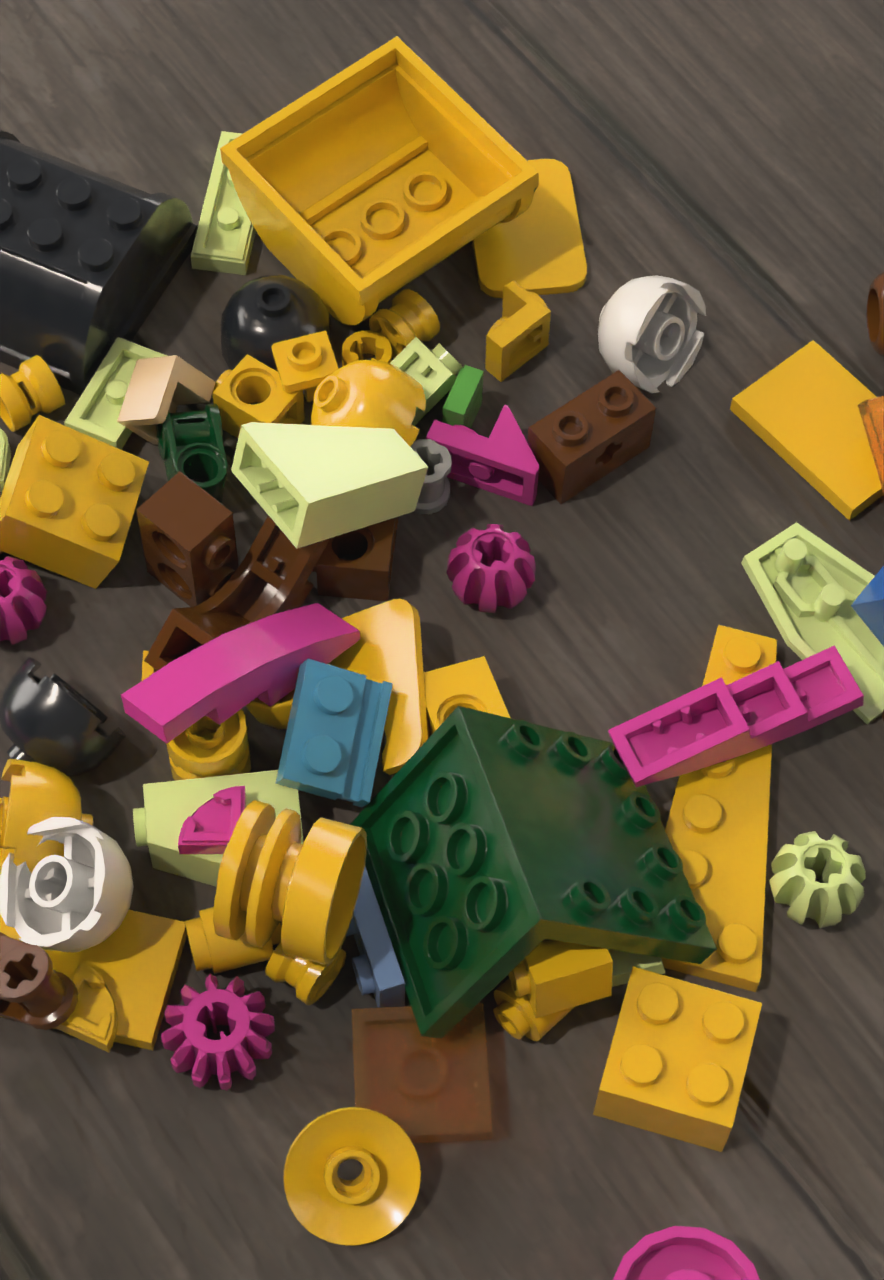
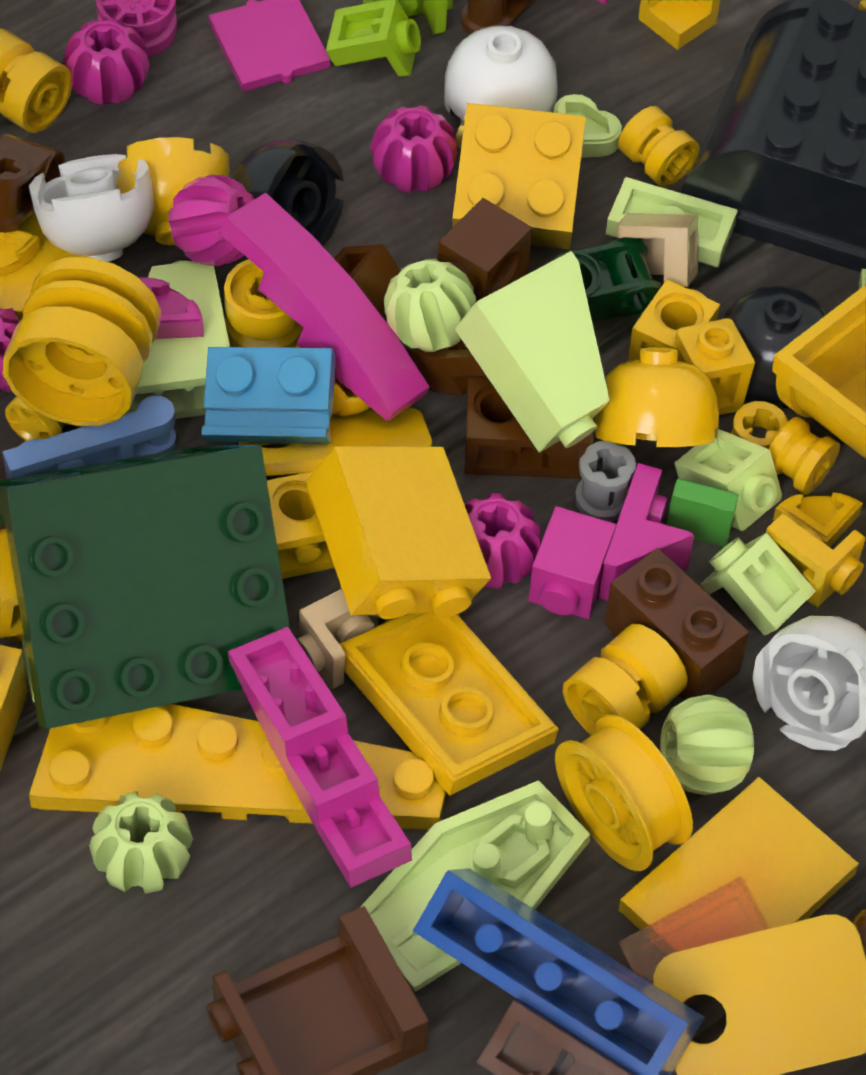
camera: 85 degrees right, 5 degrees down
(114, 767) = (199, 216): none -> dark pink piece
(263, 590) = (428, 304): none -> yellowish green piece
(461, 326) = (822, 514): none -> yellow tile
(512, 627) = (397, 531): none -> yellow brick
(518, 503) = (570, 563): none -> dark pink brick
(534, 373) = (759, 581): none -> yellowish green bracket
(576, 705) = (324, 627): none -> tan bracket
(649, 625) = (447, 697): none -> yellow tile
(656, 486) = (630, 679): none -> yellow wheel
(714, 424) = (708, 744): none -> yellowish green piece
(776, 480) = (624, 792): none -> yellow wheel

